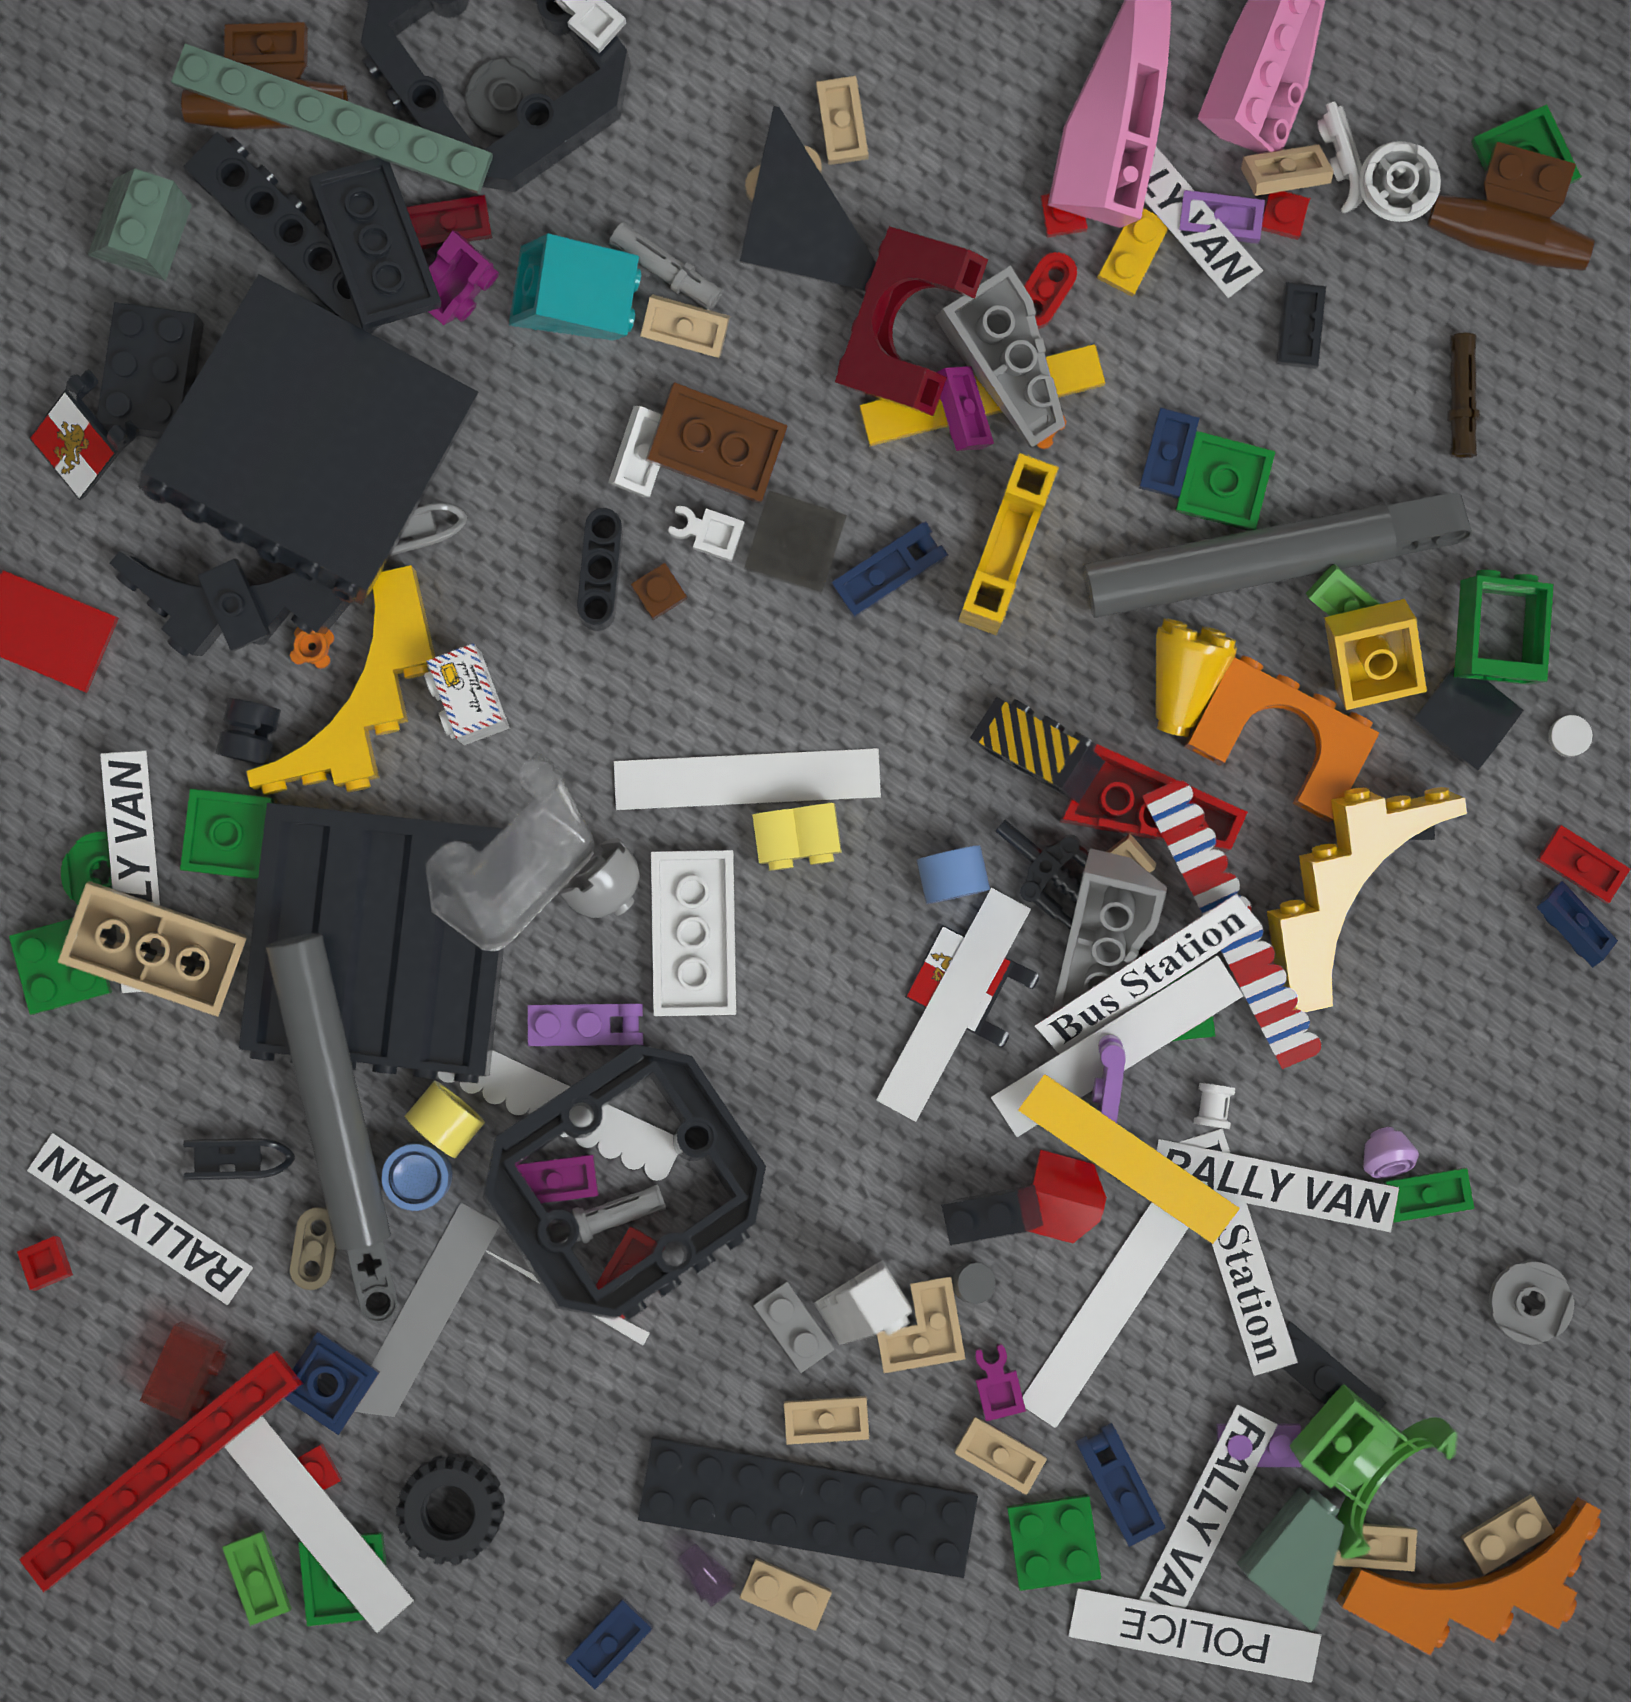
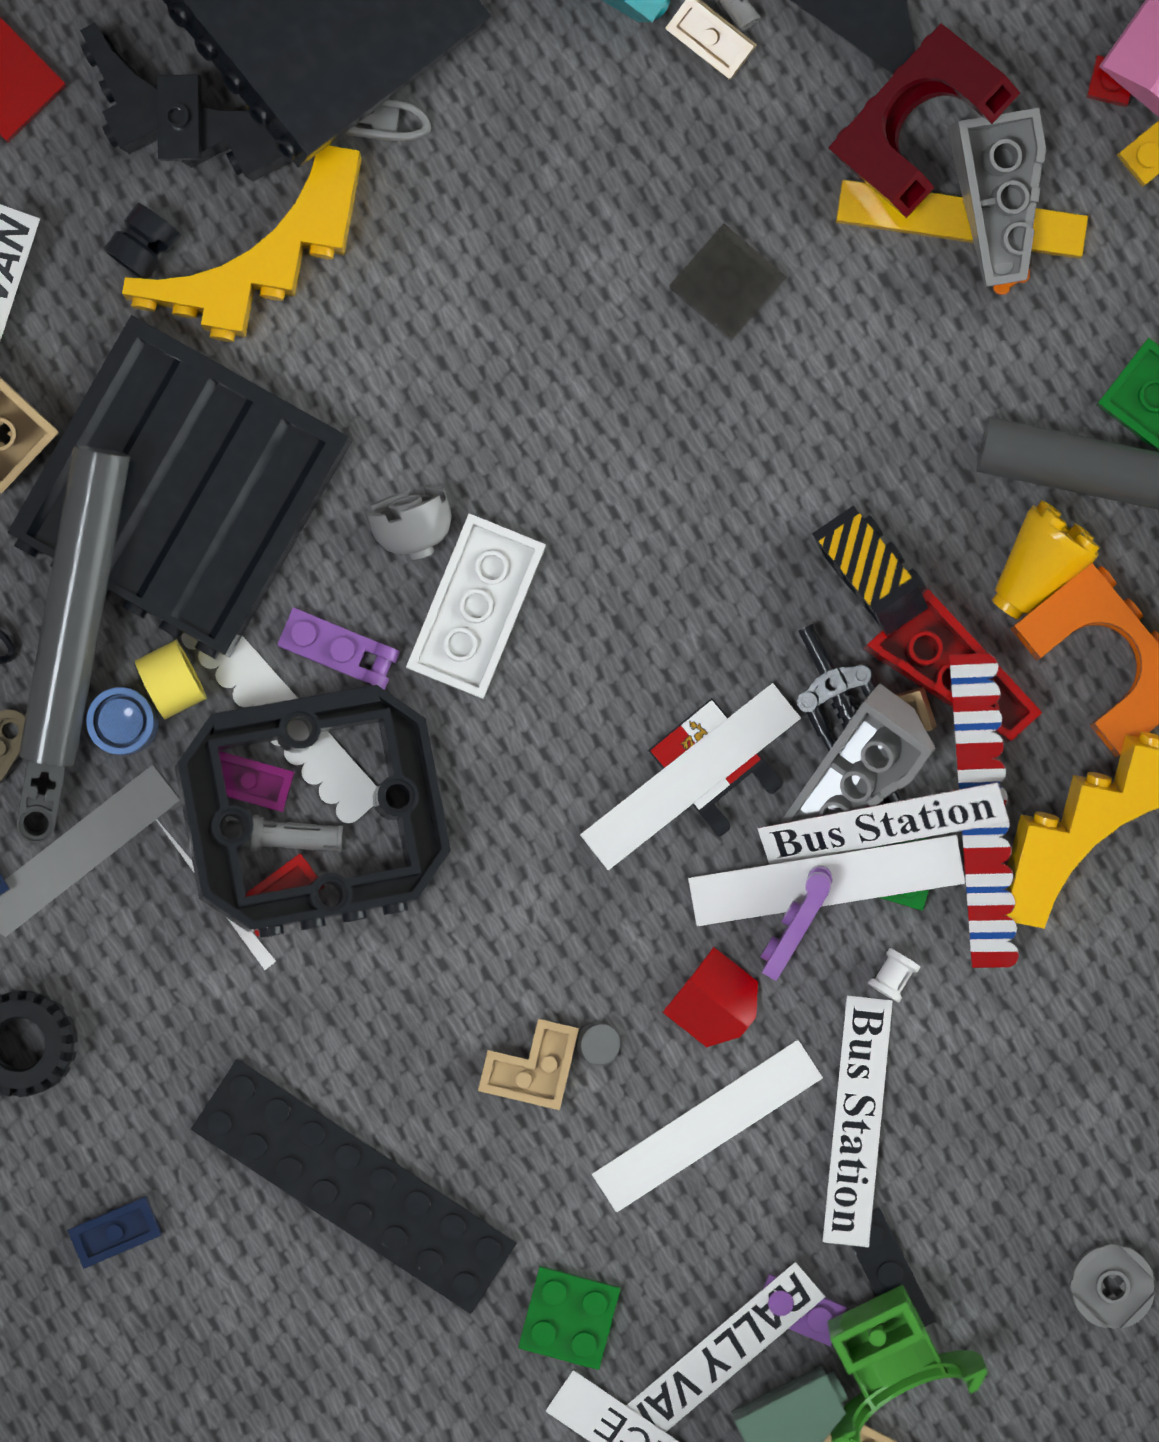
camera: 25 degrees right, 0 degrees up
(224, 833) = (78, 327): green plate -> none
(318, 656) = (224, 192): orange plate -> none
(466, 694) = (360, 293): white brick -> none
(508, 883) = (340, 476): clear windscreen -> none
(596, 550) = (535, 210): black beam -> none
(630, 468) = (620, 136): white plate -> none
(658, 591) = (580, 274): reddish brown plate -> none
(706, 1575) = (232, 1208): clear purple cone -> none
(714, 533) = (654, 242): white plate -> none
(716, 442) = (693, 158): reddish brown plate -> none
(747, 779) = (587, 484): white sticker -> none
(785, 1594) = (298, 1257): tan plate -> none
(794, 1326) = (412, 1012): light grey plate -> none
(797, 834) = (612, 556): light yellow brick -> none
(826, 1420) = (405, 1112): tan plate -> none
(865, 1306) = (486, 1019): white wedge -> none
(888, 570) = (803, 345): dark blue plate -> none
(953, 874) = (741, 654): medium blue piece -> none
(965, 409) = (939, 225): magenta plate -> none
(992, 1215) = (642, 986): black brick -> none
(999, 1390) = (579, 1154): magenta plate -> none
(1000, 1455) = (554, 1214): tan plate -> none
(1008, 544) = (925, 368): yellow arch -> none
(1047, 292) = (1064, 149): red plate -> none
(1121, 1486) = (654, 1292): dark blue plate -> none
(1128, 1158) = (792, 989): yellow sticker -> none
(1169, 453) = (1114, 347): dark blue plate -> none
(1287, 1186) = (918, 1074): white sticker -> none
(1388, 1154) = (1038, 1090): lavender cone -> none
(1432, 1194) = (1059, 1144): green plate -> none

